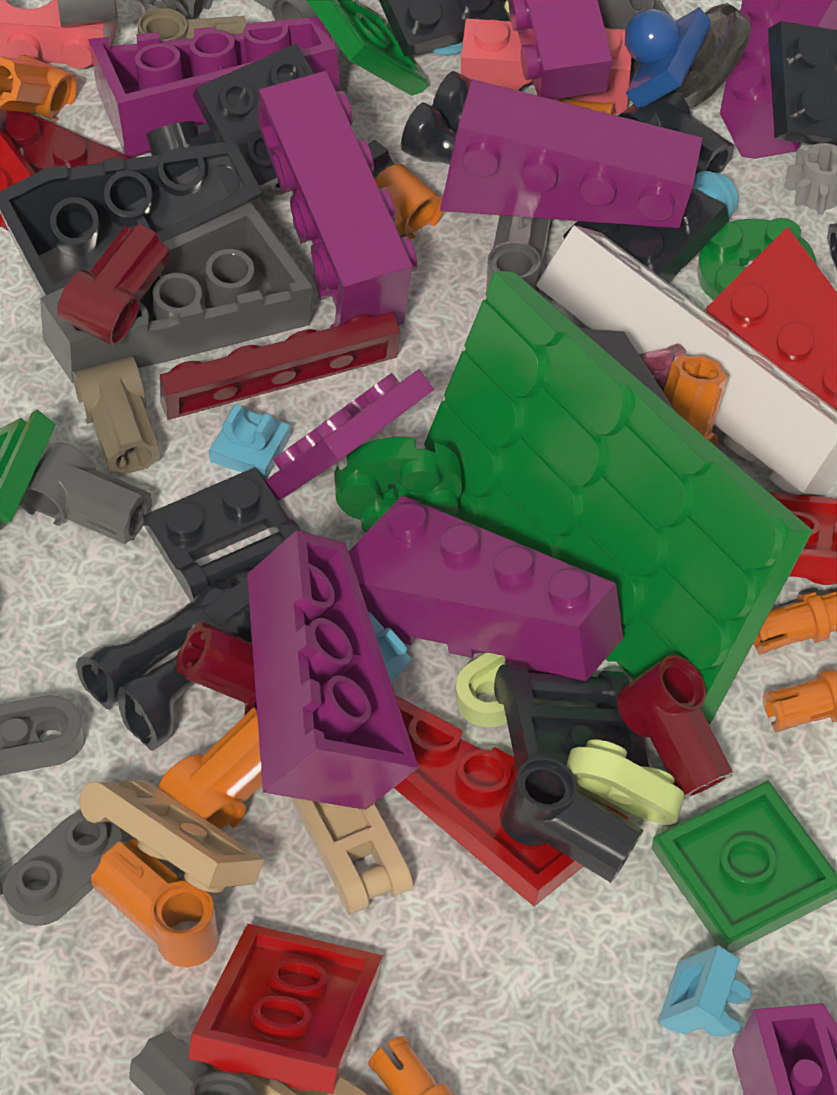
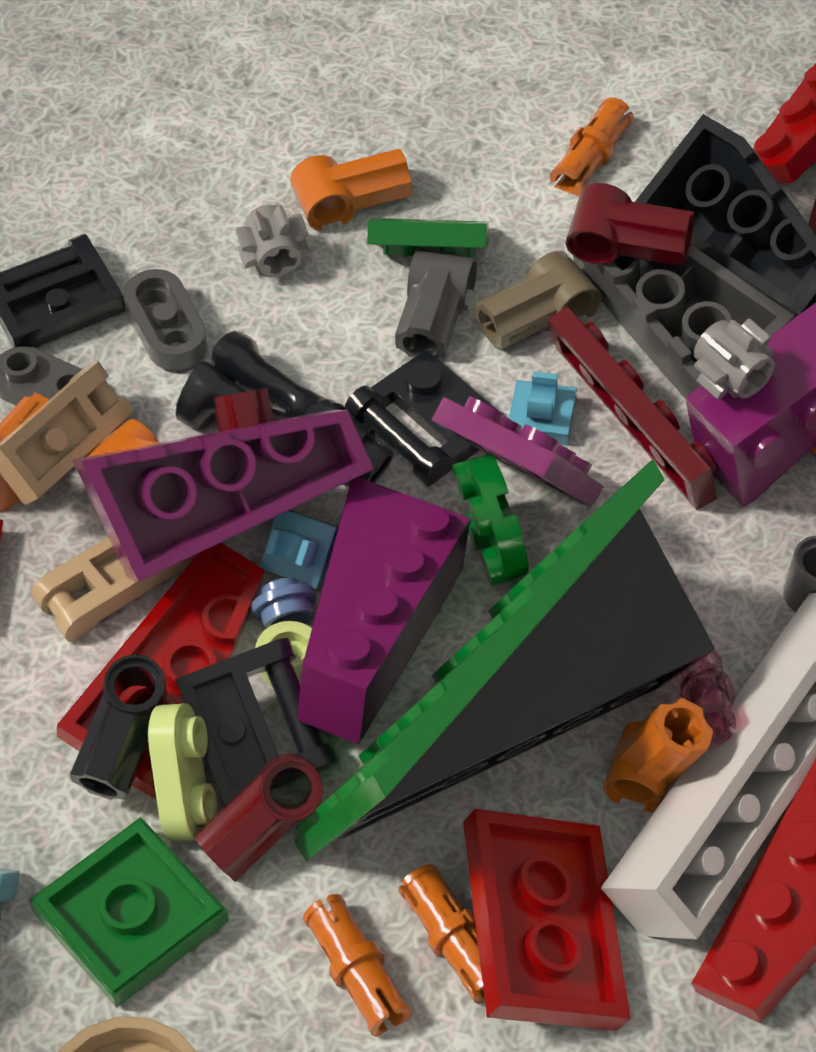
camera: 80 degrees right, 0 degrees up
(345, 222) = (734, 359): none -> light grey gear
(430, 683) = (284, 601): none -> medium blue plate

